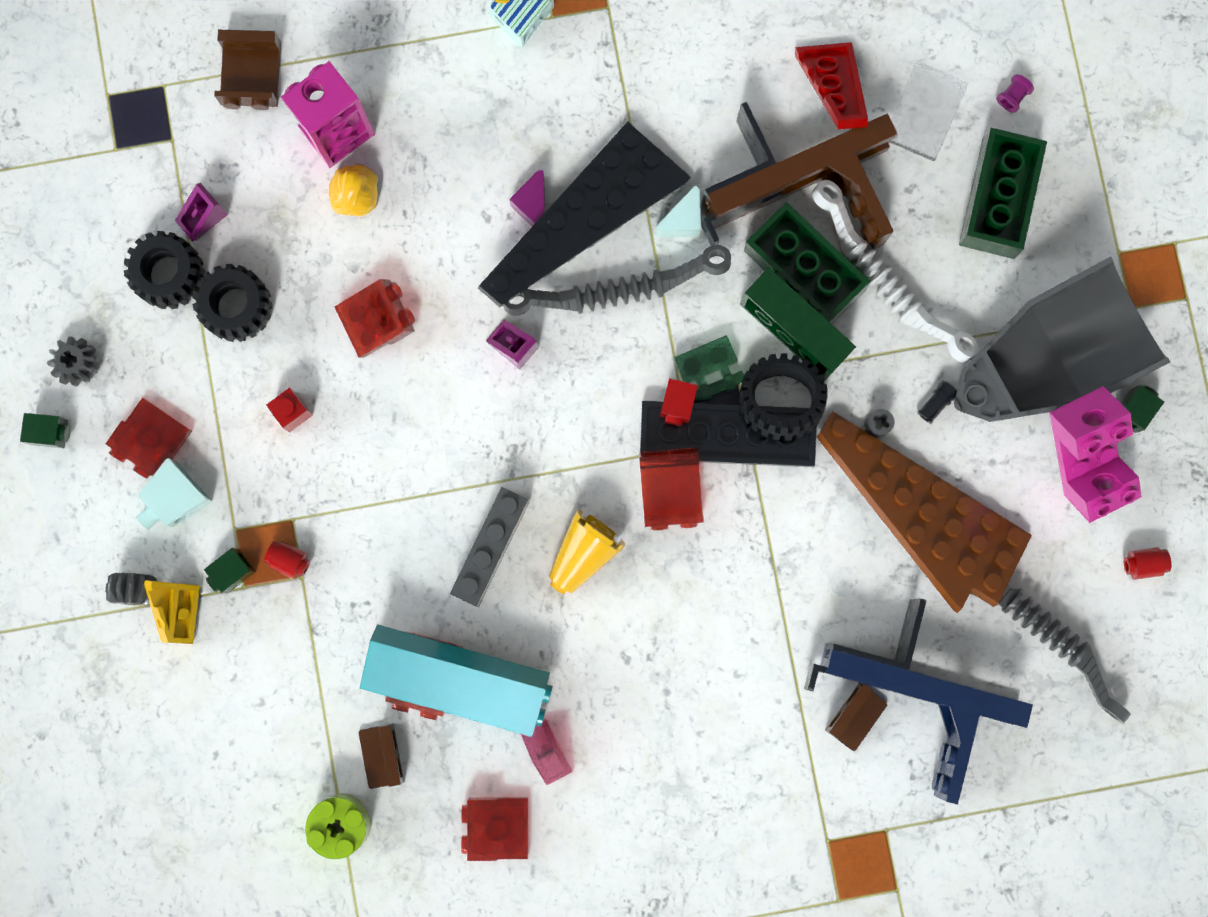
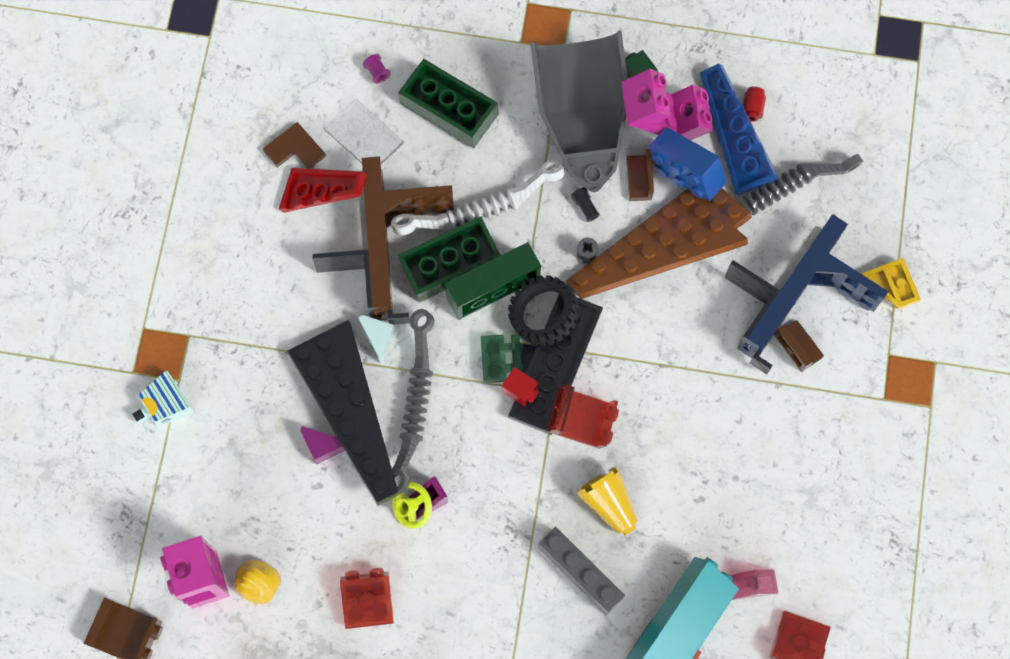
camera: 70 degrees left, 10 degrees down
(493, 324) = (405, 506): none -> neon yellow piece
(885, 35) = (297, 142): none -> reddish brown tile
(978, 809) = (898, 281): none -> yellow wing
(997, 455) = (640, 177): none -> reddish brown panel
(1031, 506) = (687, 164): none -> blue brick
(1086, 564) = (740, 144): none -> blue wing

